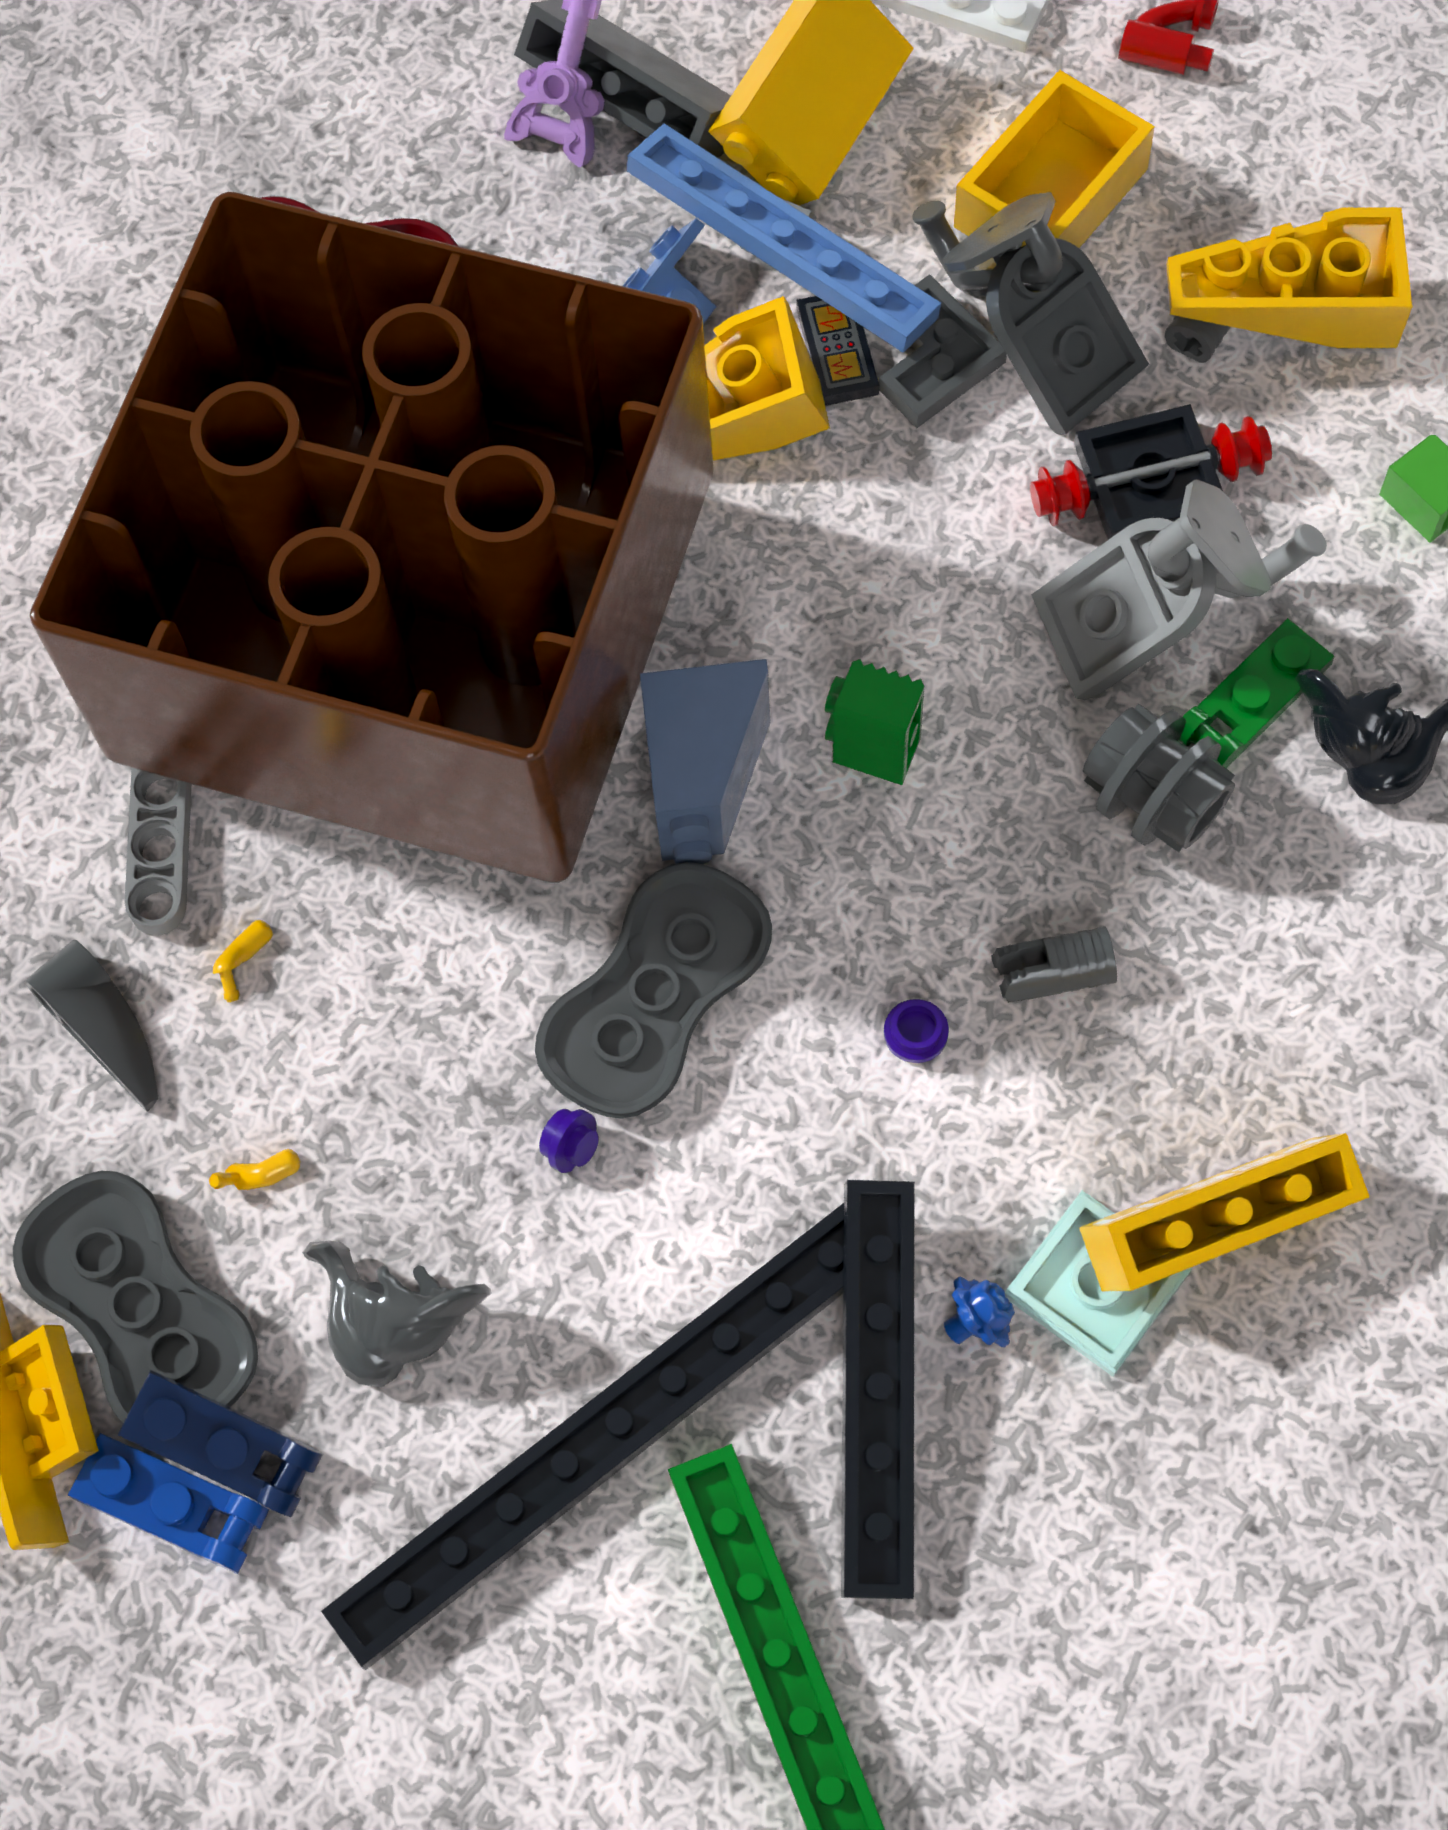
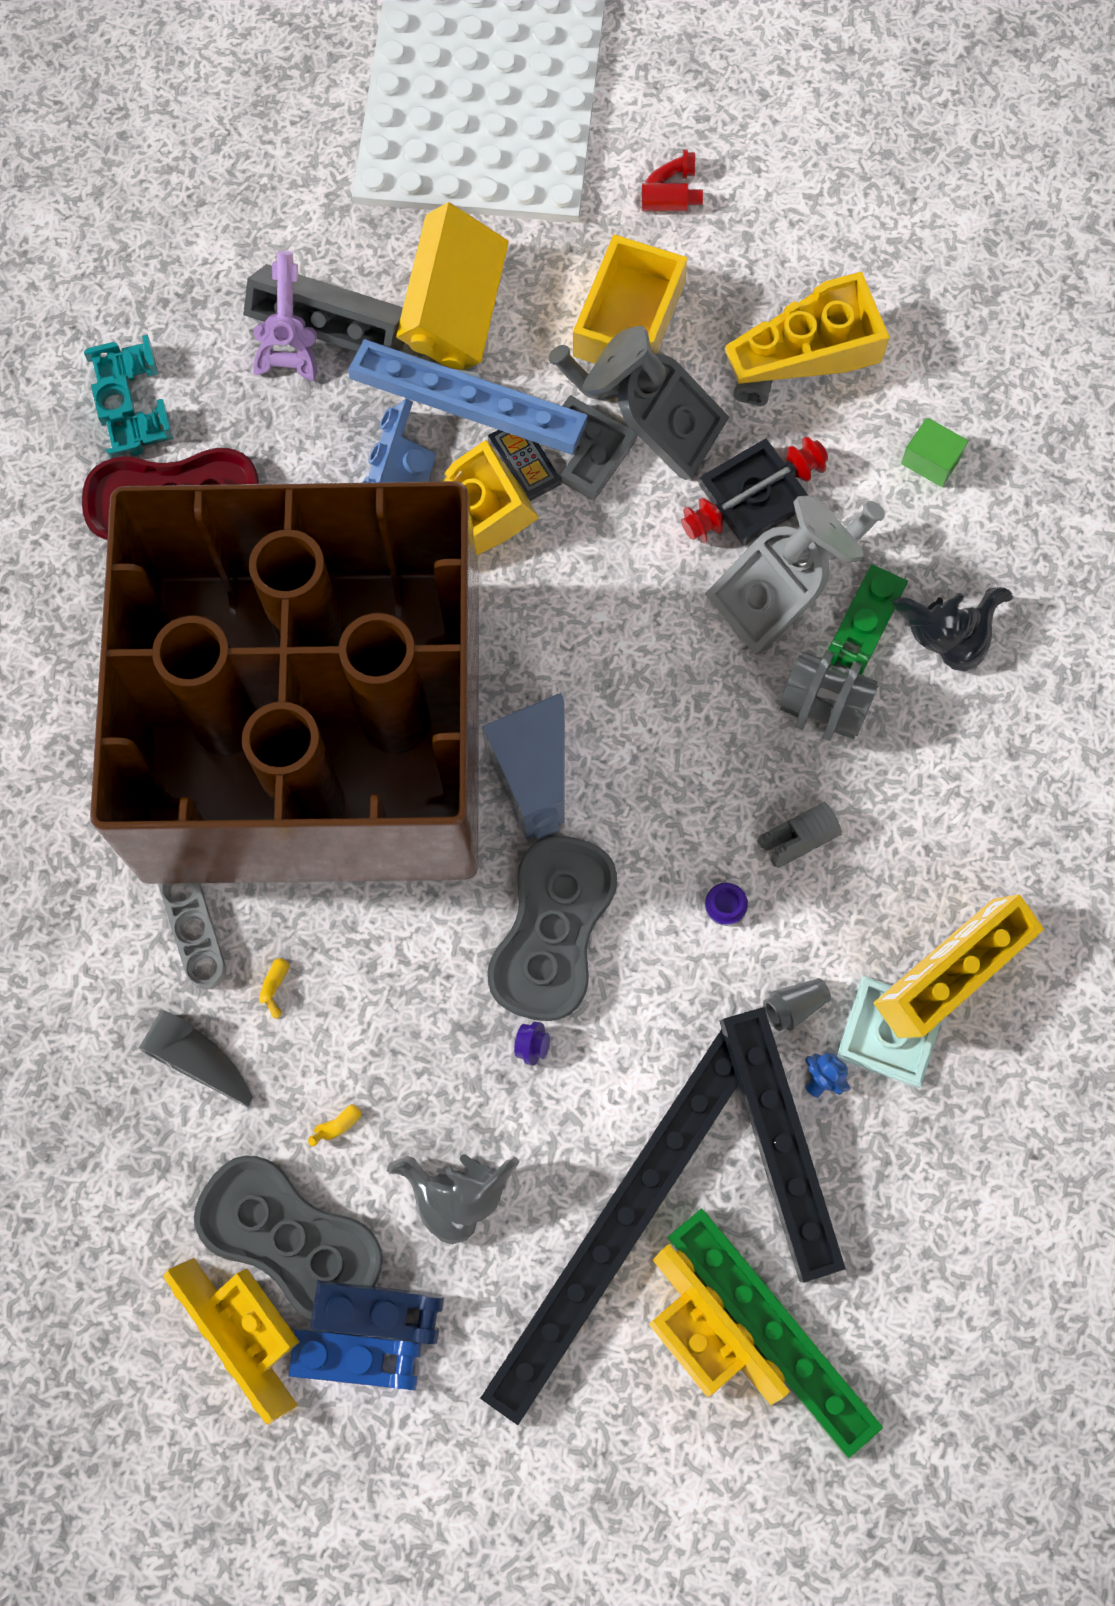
camera: 20 degrees left, 5 degrees up
(310, 99) = (112, 380): none -> teal piece
(674, 1630) = (706, 1337): none -> yellow bracket
(875, 721) = (637, 710): green brick -> none
(968, 1198) = (795, 1003): none -> dark grey cone

